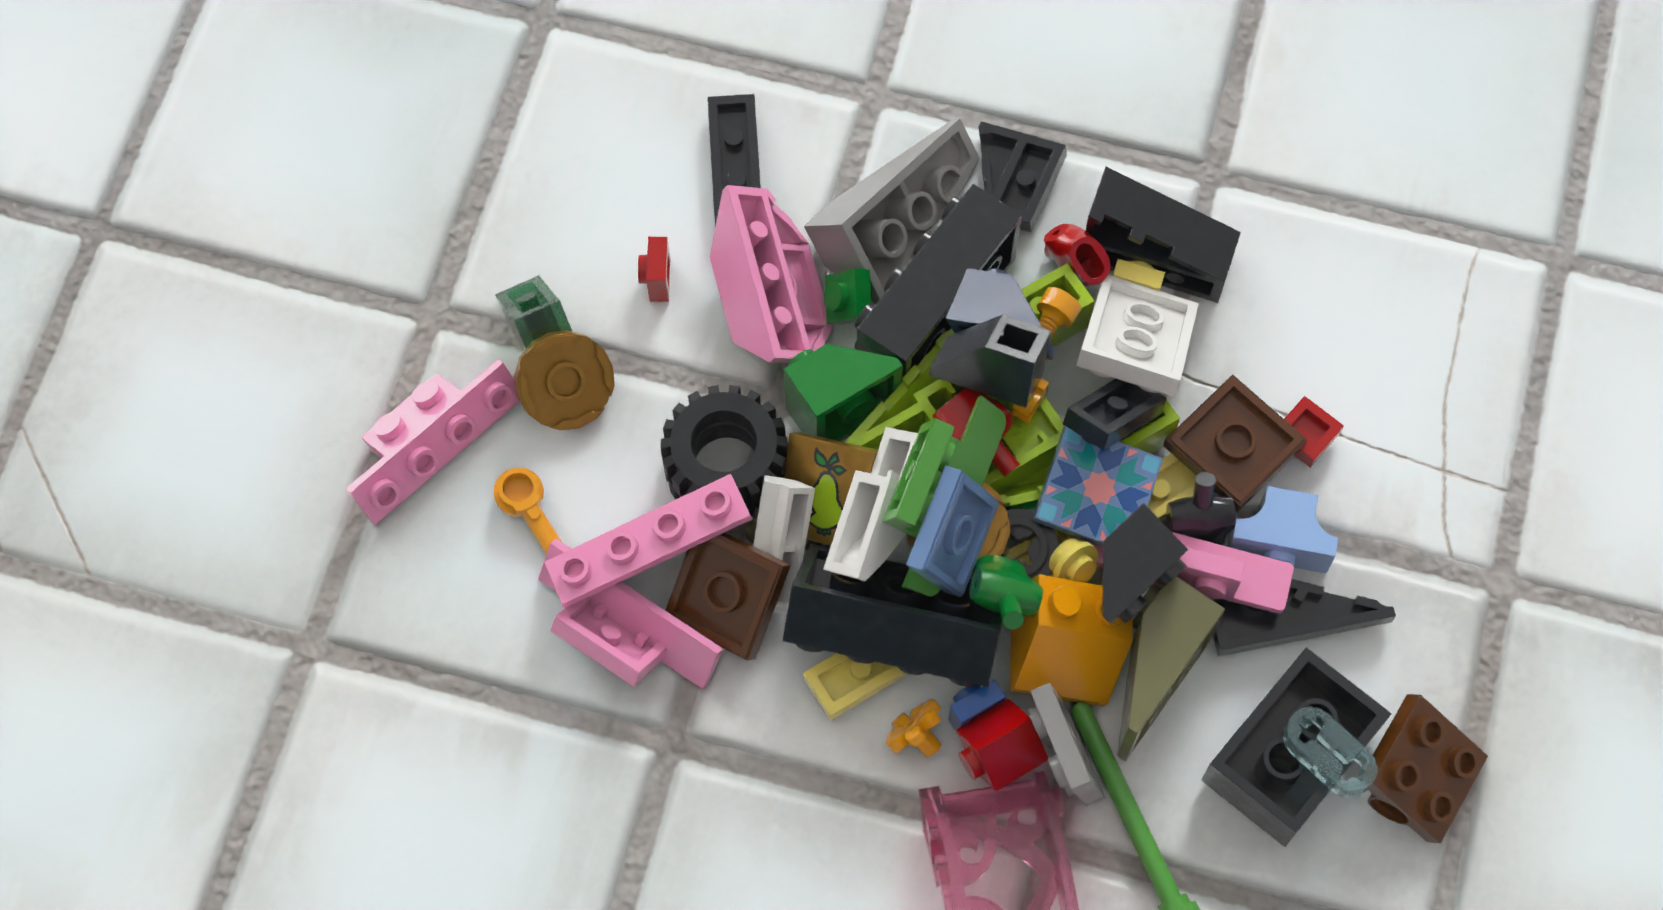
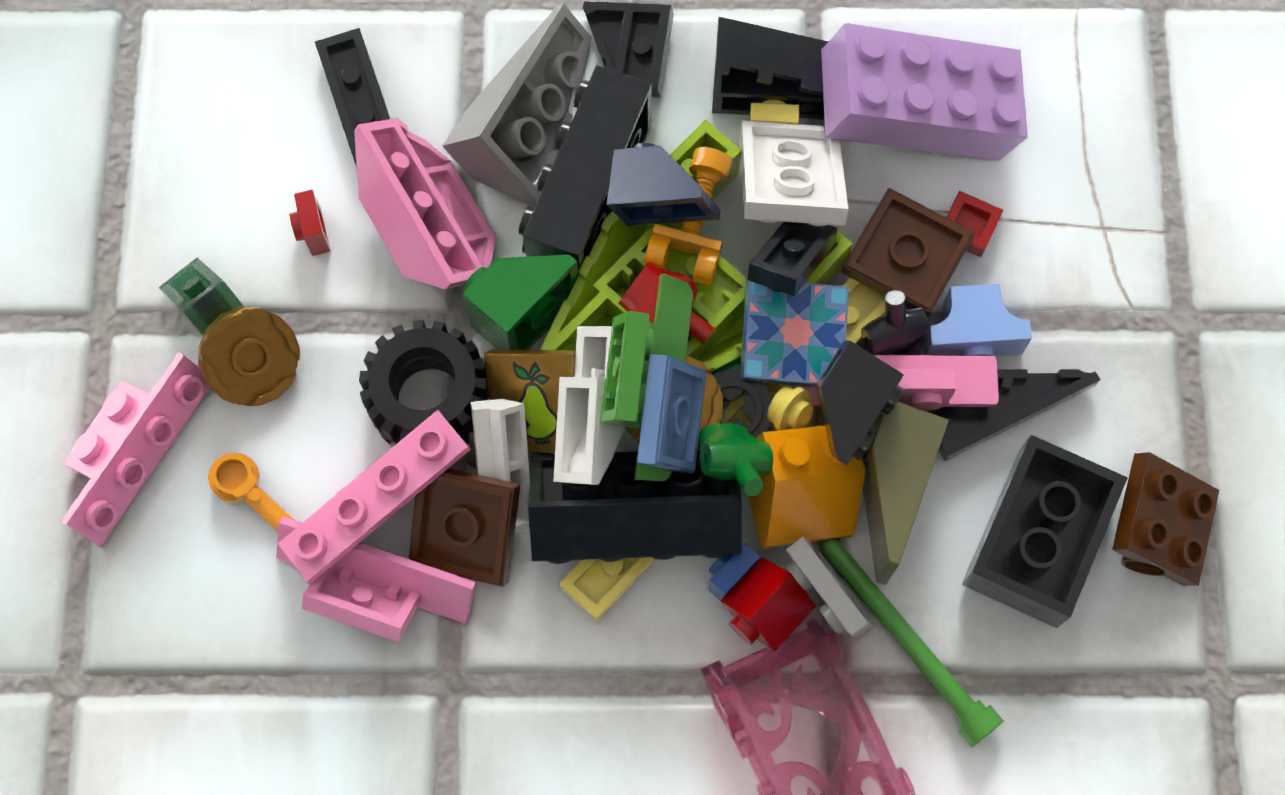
camera: 15 degrees left, 5 degrees up
(846, 295) = (502, 203): green plate -> none
(916, 729) = (681, 609): light orange plant -> none
(995, 358) = (666, 233): black slope -> none
(1080, 250) = (712, 103): red piece -> none
(1292, 290) = (923, 92): none -> lavender brick
(1339, 743) = (1088, 521): clear light blue beam -> none

